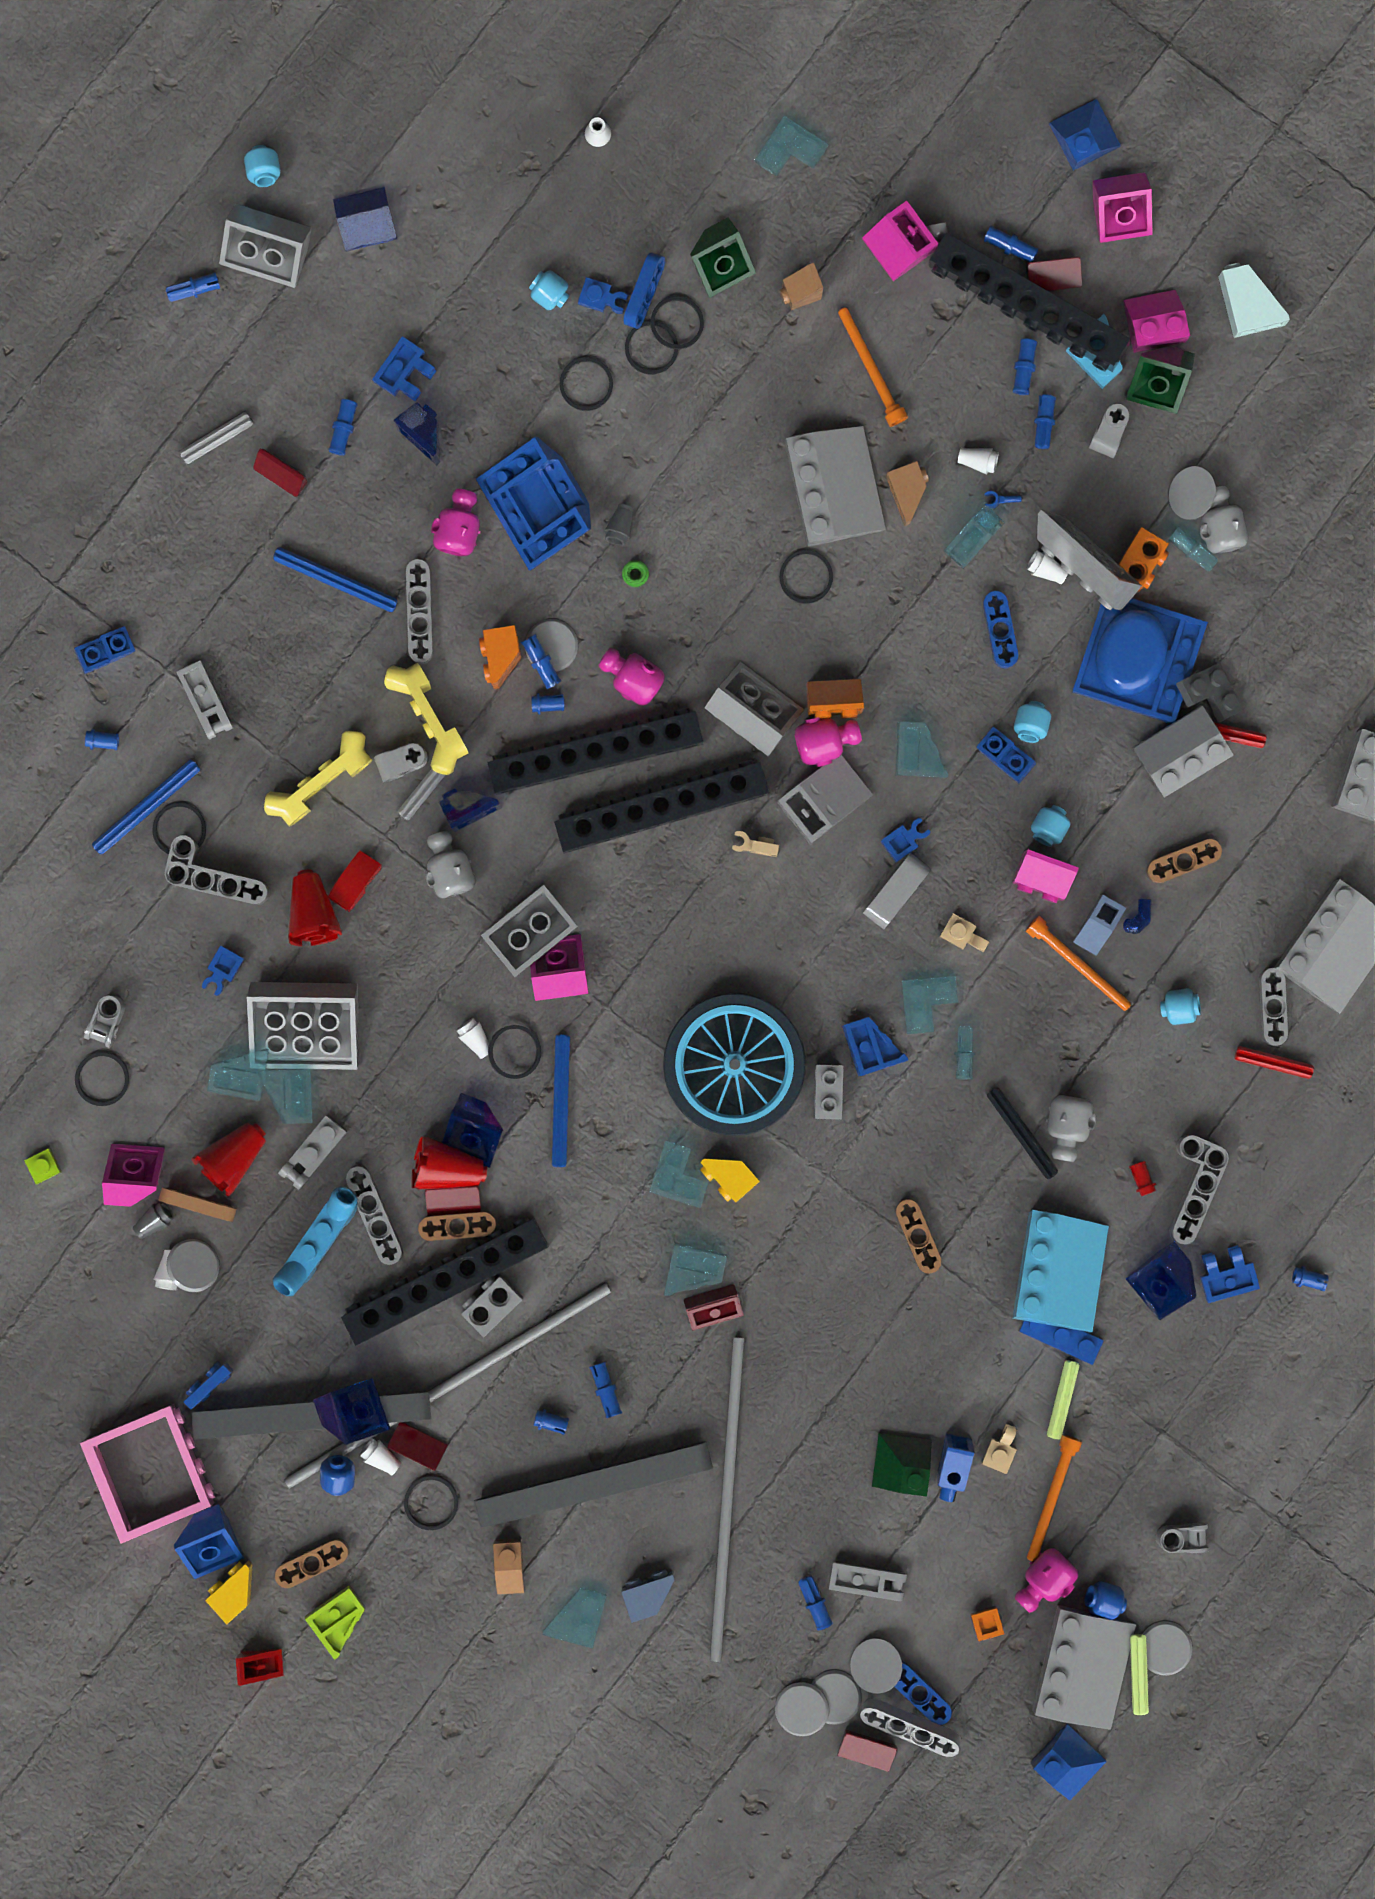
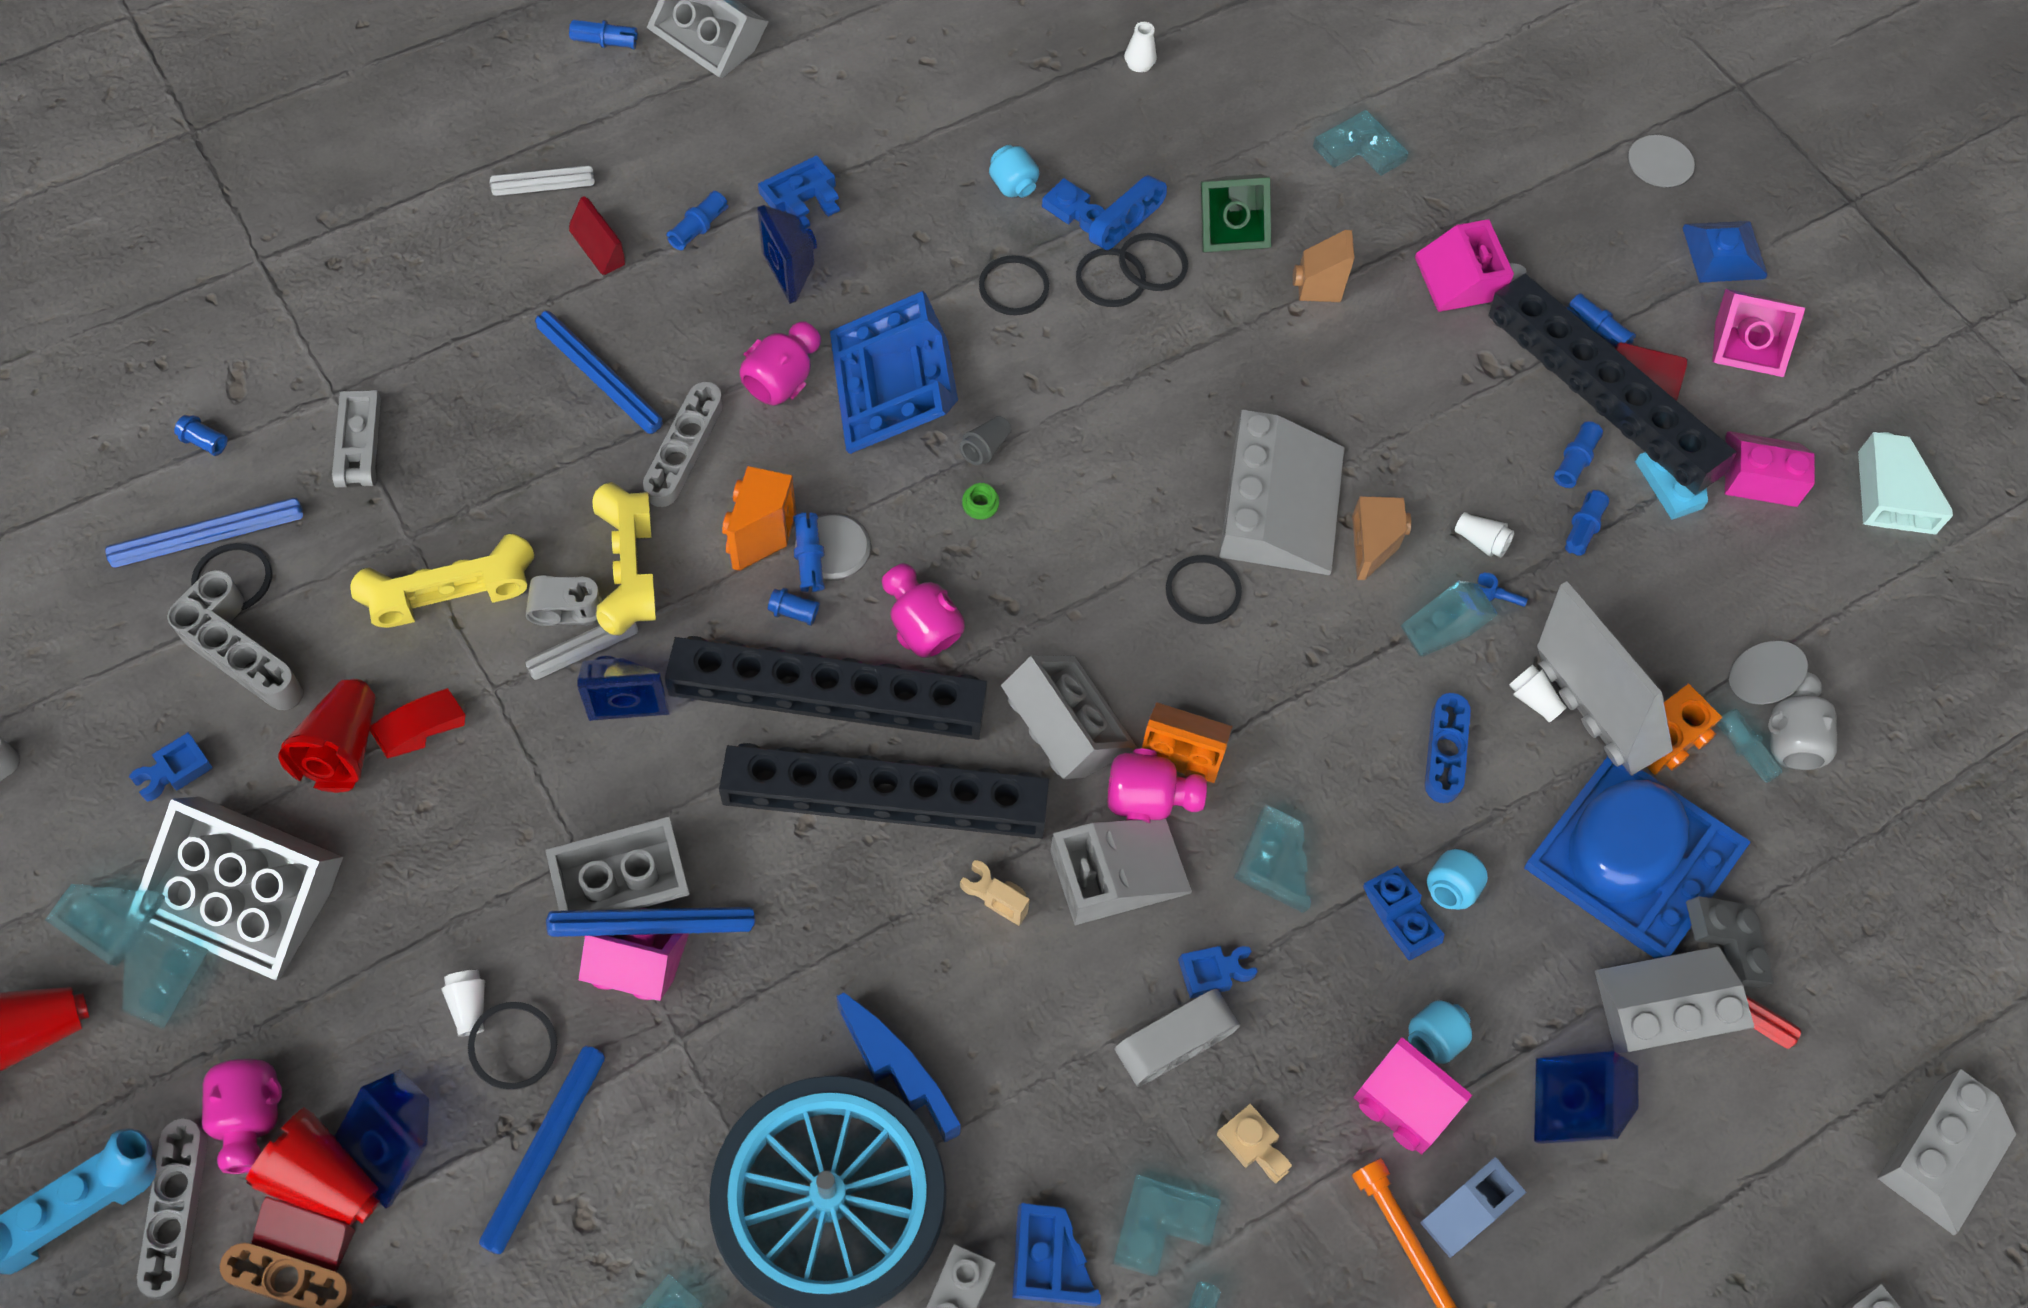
camera: 20 degrees right, 25 degrees down
(104, 650) = (274, 344): blue slope -> none
(313, 1151) = (141, 1074): light grey plate -> none
(364, 219) = (833, 44): clear blue slope -> none
(382, 1149) = (239, 1108): none -> dark pink piece
(449, 869) = (552, 754): light grey piece -> none
(563, 951) = (649, 921): none -> blue axle
(731, 970) = (889, 1056): none -> blue slope
(894, 413) = (1391, 445): orange piece -> none
(1017, 66) = (1661, 161): none -> light grey piece
(1109, 434) = (1674, 560): light grey piece -> none
(1141, 920) = (1537, 1230): clear blue arm -> none
(1147, 832) = (1584, 1097): none -> clear blue slope
(1161, 378) = (1757, 527): dark green slope -> none
(1205, 860) = (1658, 1155): medium nougat beam -> none

